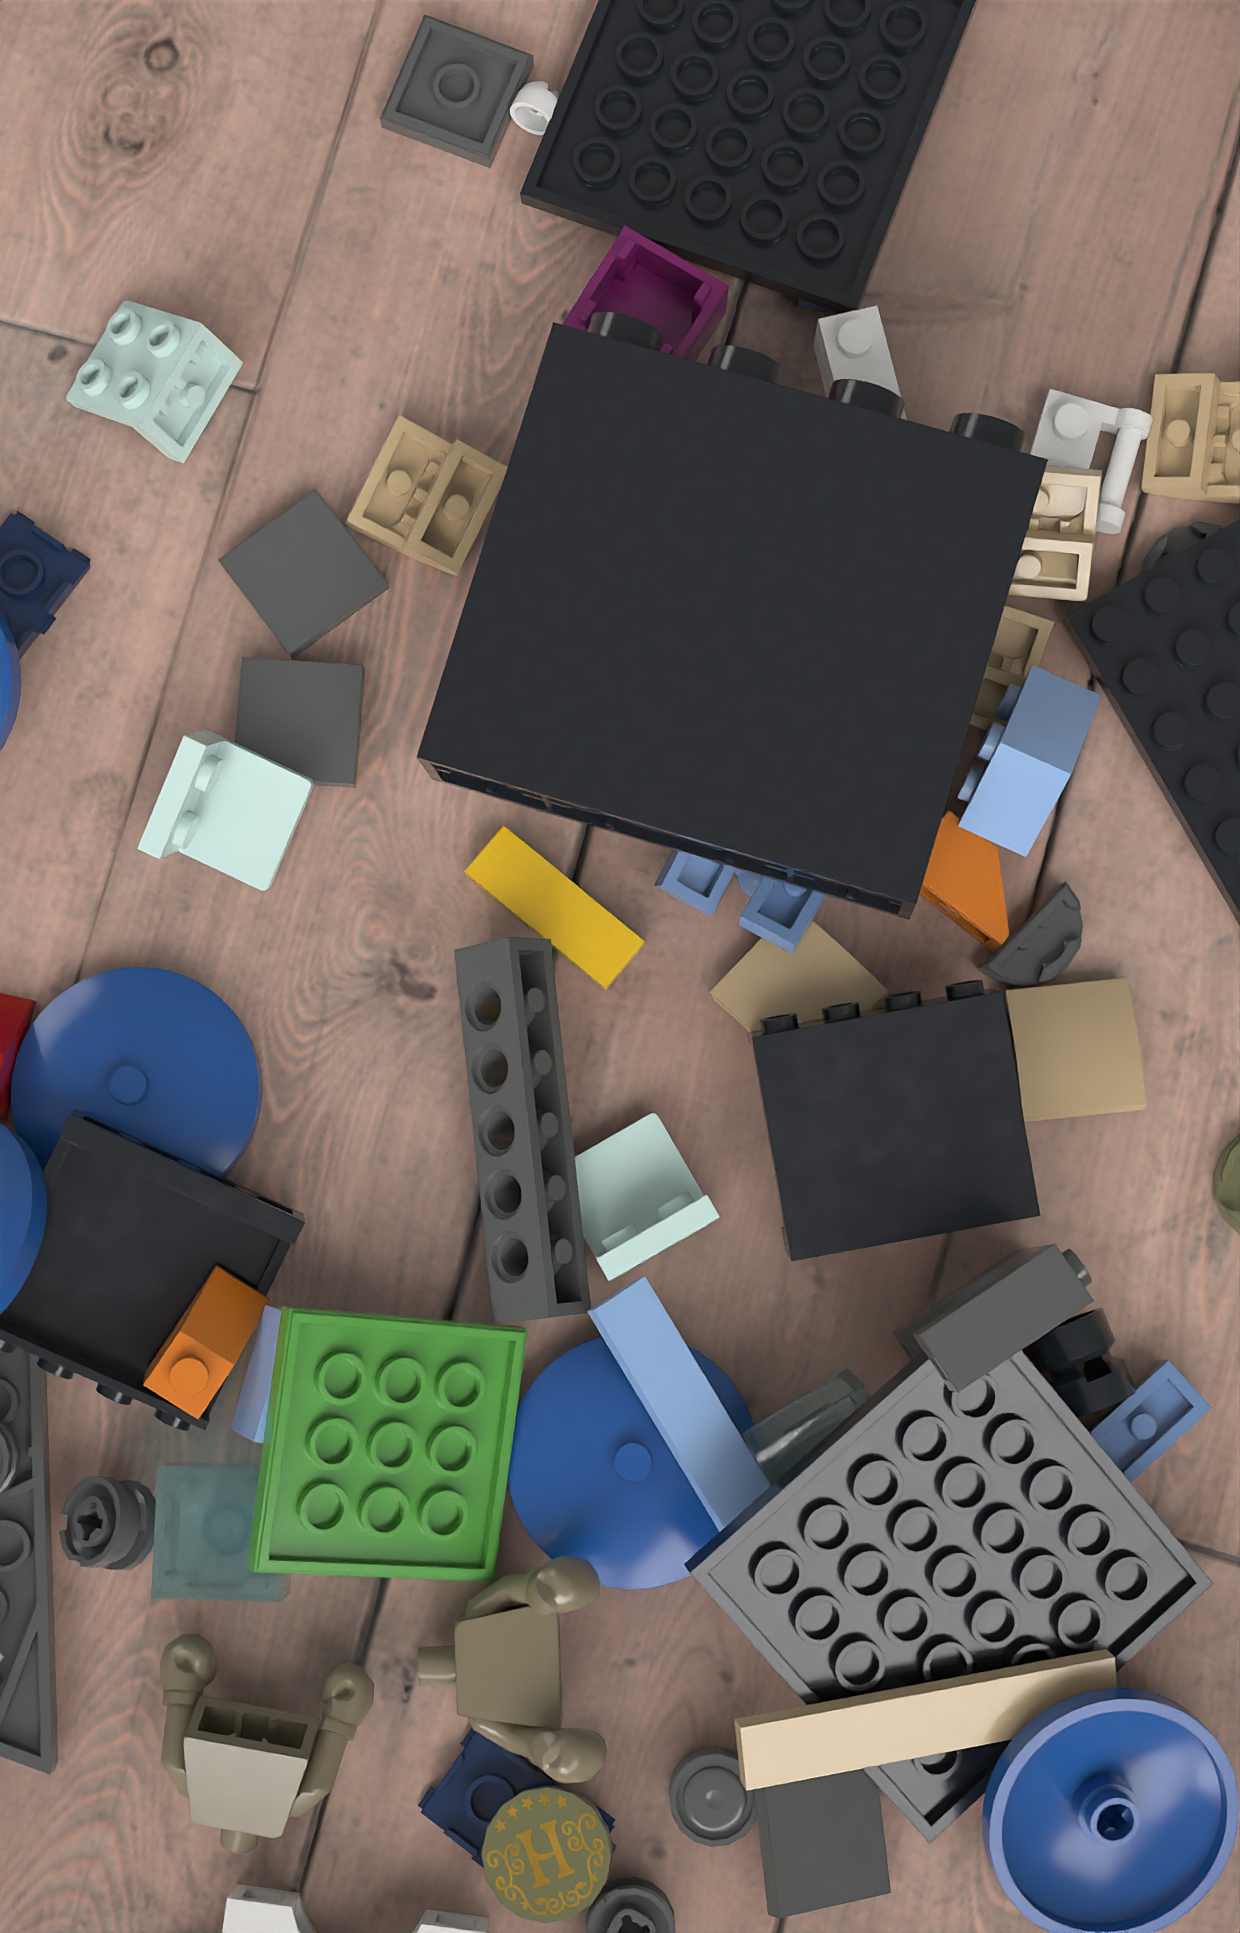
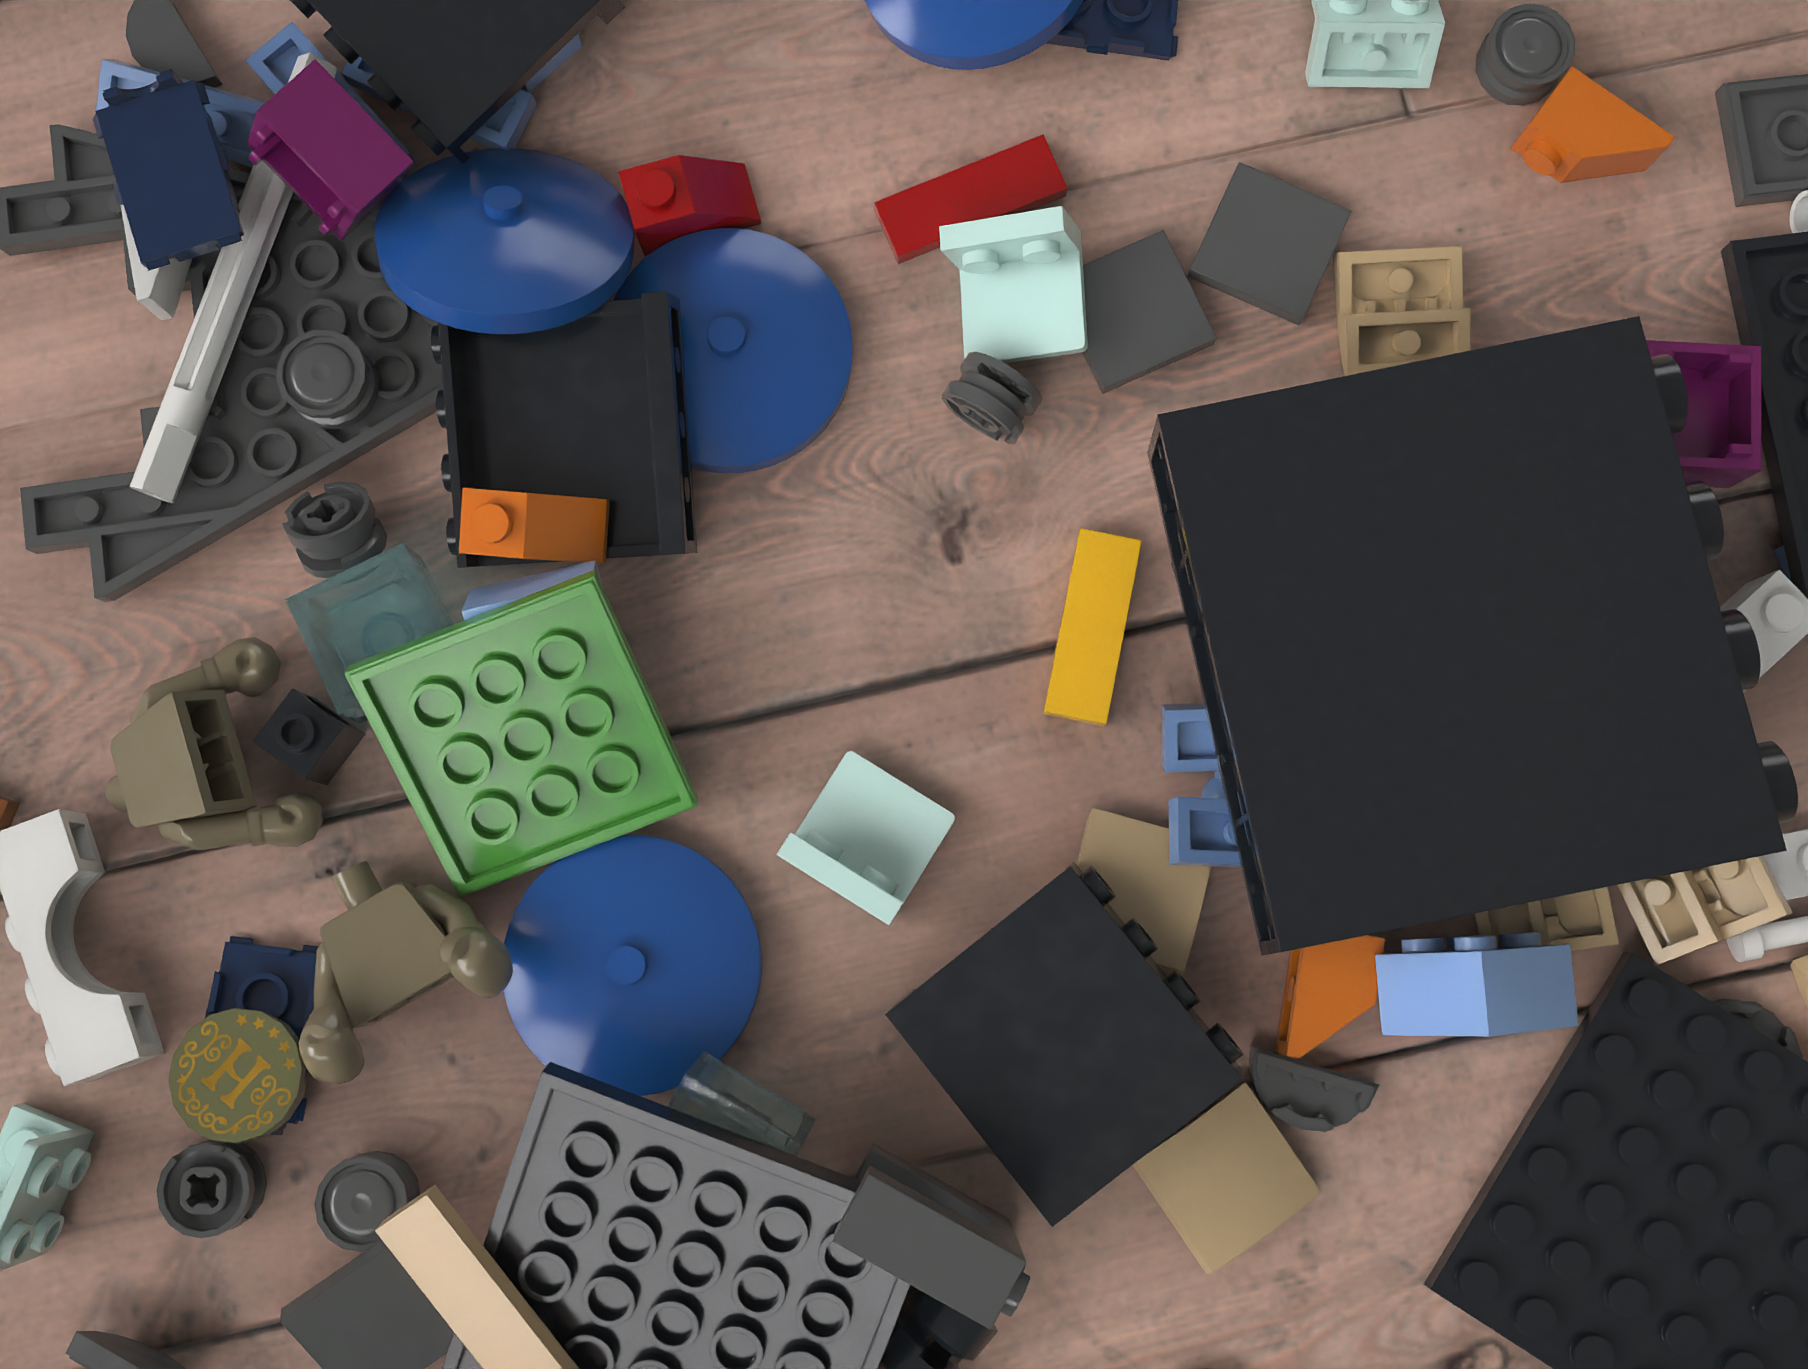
camera: 60 degrees right, 0 degrees up
(119, 806) = (988, 188): none -> red tile
(261, 267) = (1525, 54): none -> dark grey wheel
(282, 1642) = (309, 737): none -> black brick
(309, 884) = (992, 397): none -> dark grey wheel
(360, 256) = (1589, 134): none -> orange slope
(522, 1130) = (874, 704): dark grey brick -> none
(680, 1400) = (702, 979): light blue tile -> none

